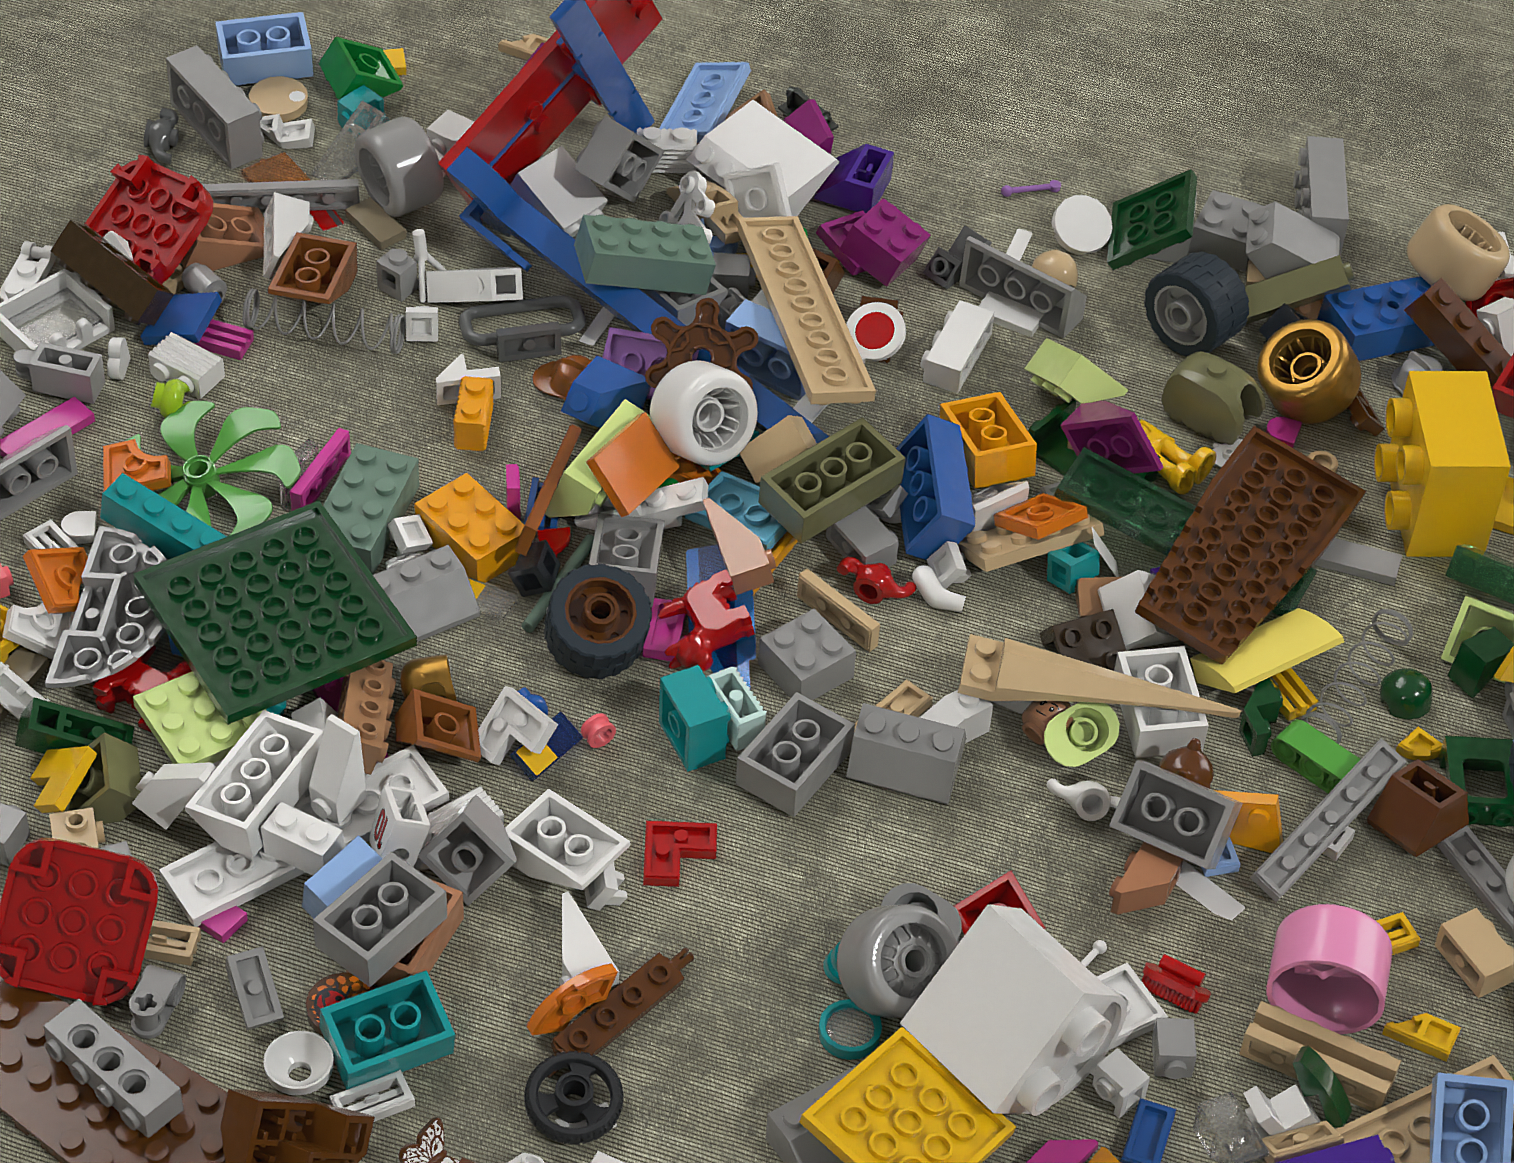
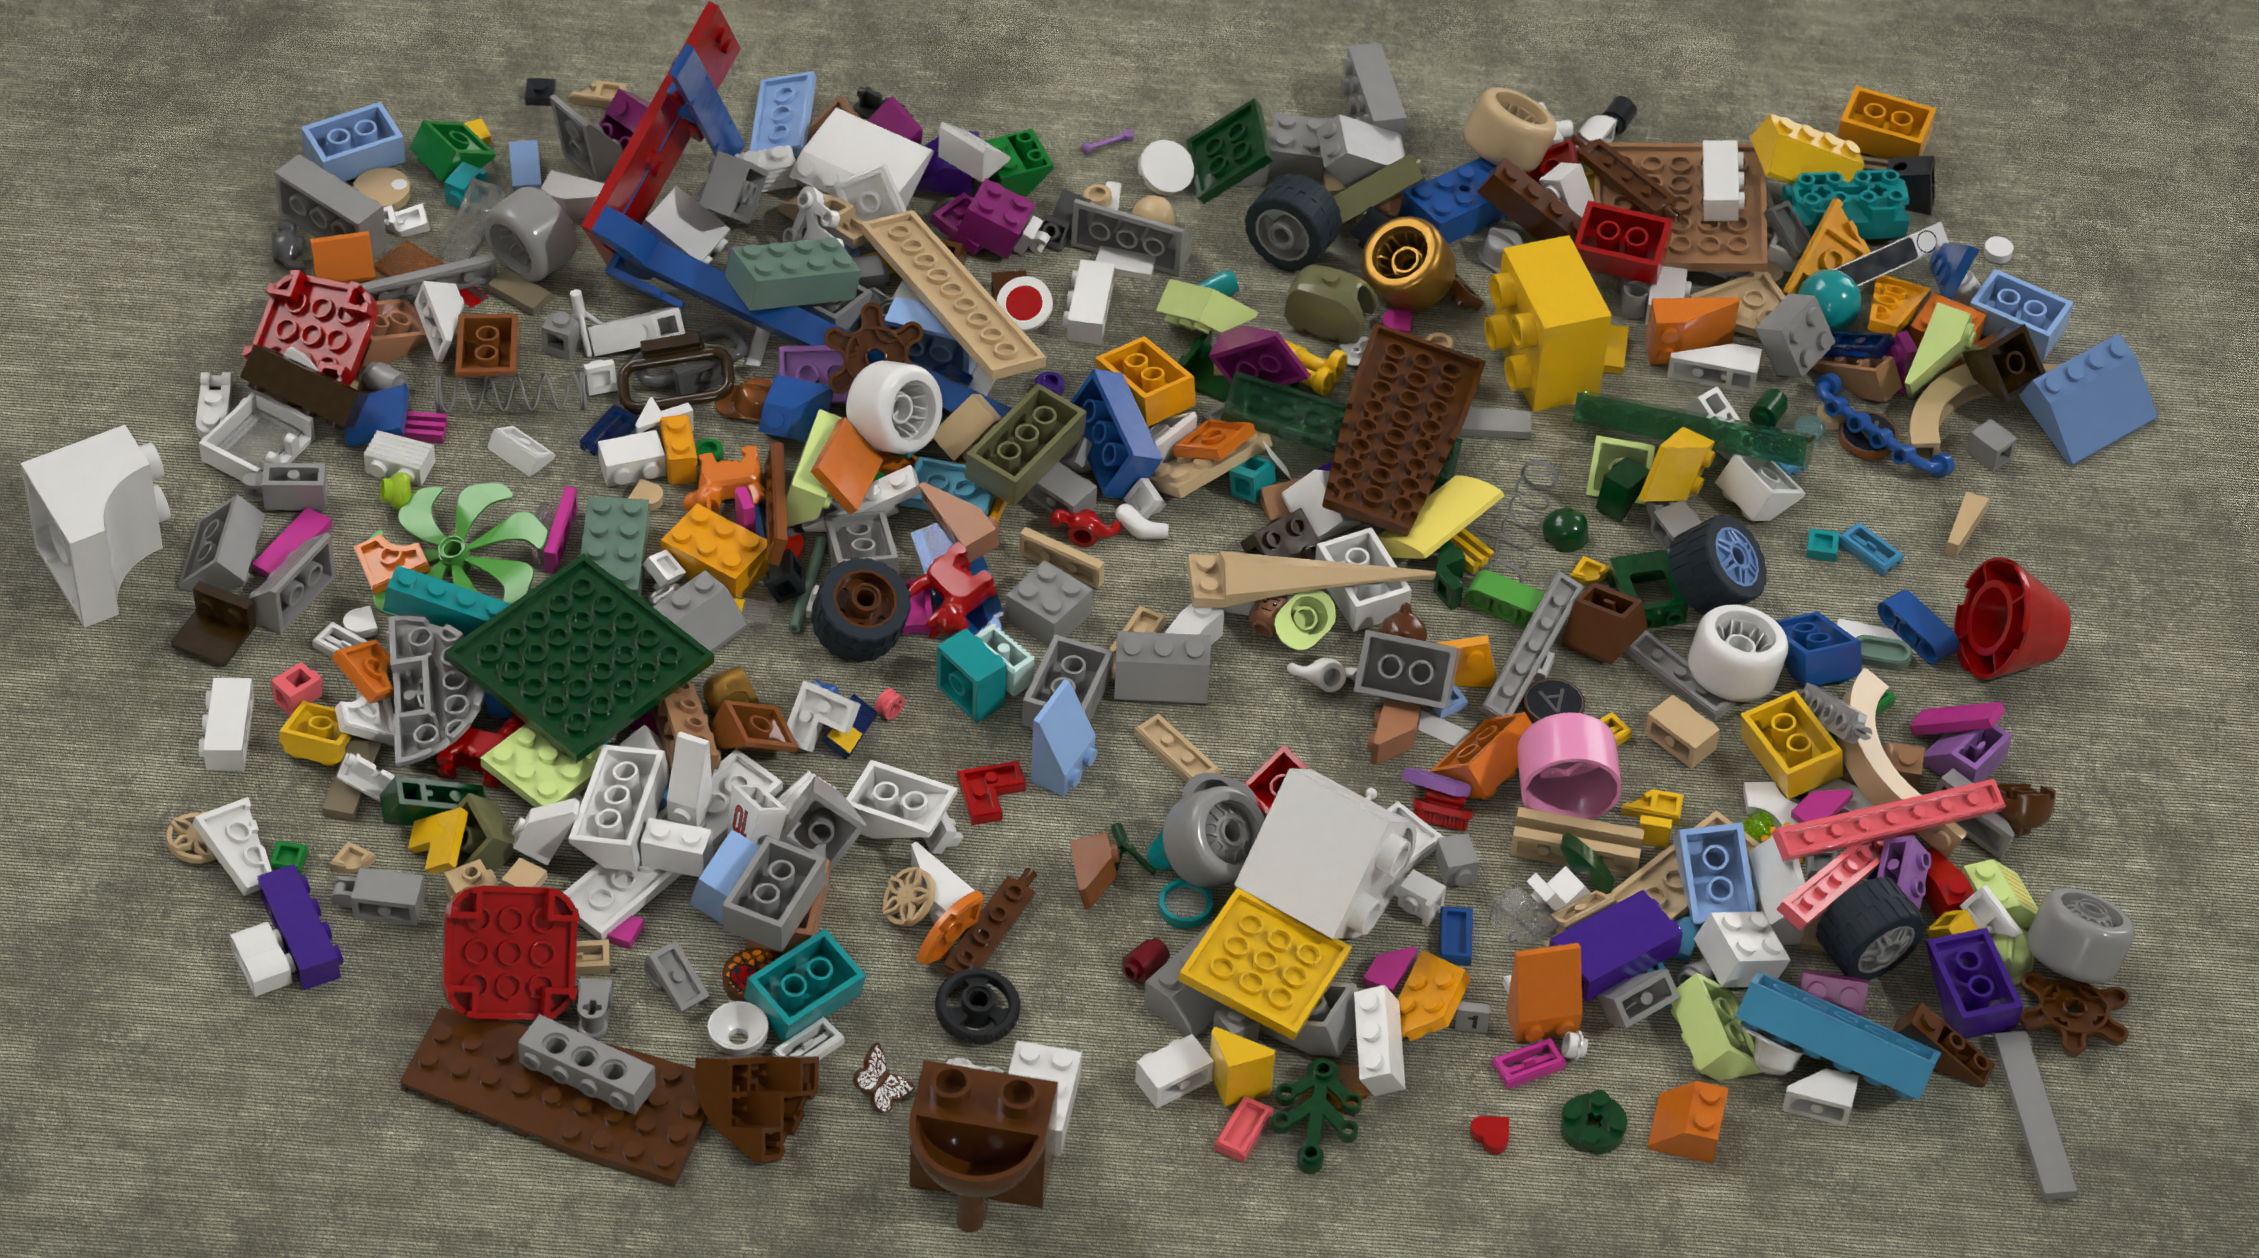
camera: 15 degrees left, 0 degrees up
(118, 358) = (333, 464): white tile -> none
(118, 837) = (524, 874): none -> tan tile
(205, 155) = (343, 258): none -> orange slope
(314, 381) = (519, 450): none -> white slope
(415, 386) = (620, 428): none -> clear blue tile
(422, 413) = (631, 458): none -> white brick
(428, 99) = (525, 164): none -> light blue slope
(428, 453) = (648, 490): none -> tan tile
(472, 34) = (539, 91): none -> black plate
(484, 72) = (585, 142): none -> light grey slope
(499, 310) = (673, 351): none -> dark brown bar
(500, 449) = (721, 478): none -> orange animal
(506, 423) = (709, 446): none -> green tile
(540, 952) = (908, 896): none -> tan wheel
(758, 964) = (1094, 866): none -> dark orange slope
(764, 813) = (1061, 742): none -> light blue slope
(780, 1086) = (1145, 960): none -> dark red brick
(784, 392) = (954, 374): none -> clear blue tile
(802, 948) = (1124, 846): none -> dark green plant
(875, 168) = (969, 152): none -> white slope
(888, 424) = (1051, 381): none -> dark purple tile
(895, 848) = (1174, 748): none -> tan tile
(918, 269) = (1032, 238): none -> white tile
(925, 190) = (1027, 164): none -> green slope
(1003, 240) = (1099, 195): none -> tan tile
(1104, 355) = (1223, 282): none -> teal cone
(1176, 951) = (1437, 782): none -> medium lavender tile
(1238, 933) = (1486, 754): none -> orange slope
(1338, 883) = (1552, 697): none -> black tile
(1415, 1063) = (1656, 831): none -> yellow tile

